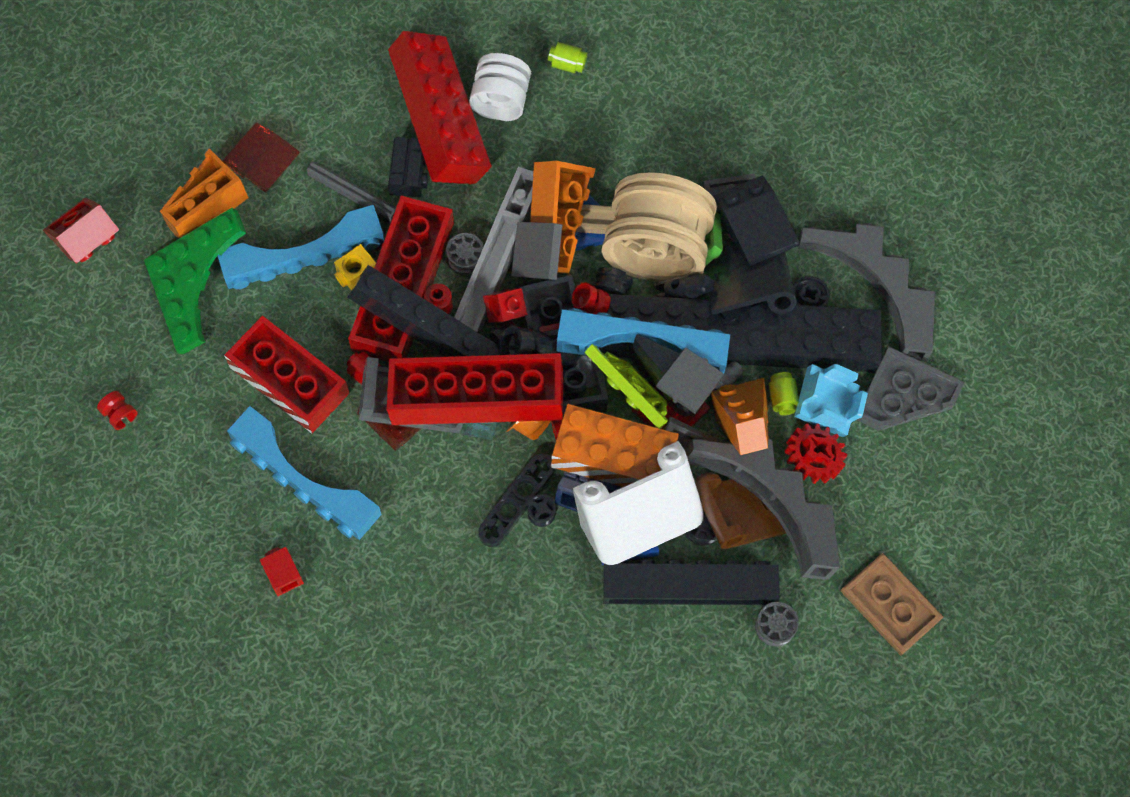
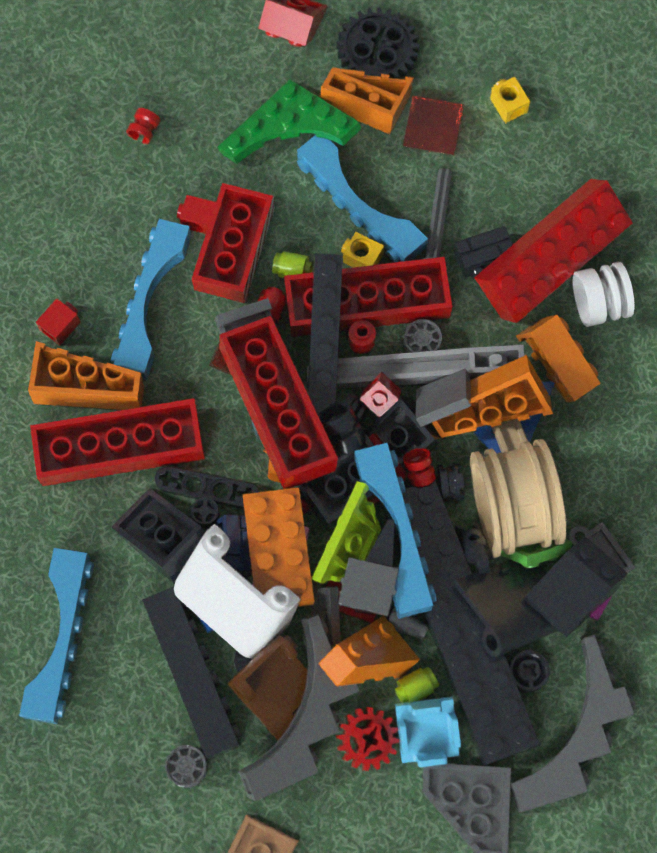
camera: 70 degrees right, 5 degrees up
(138, 185) = (355, 40): none -> black gear
(238, 395) = (196, 213): none -> red brick
(271, 75) = (509, 109): none -> yellow brick
(335, 334) = (290, 264): none -> lime brick
(354, 575) = (81, 381): none -> orange wedge
(435, 561) = (117, 442): none -> red brick
(528, 144) = (561, 357): none -> orange wedge
(545, 557) = (160, 533): none -> black slope
(549, 663) = (44, 694): none -> dark azure arch

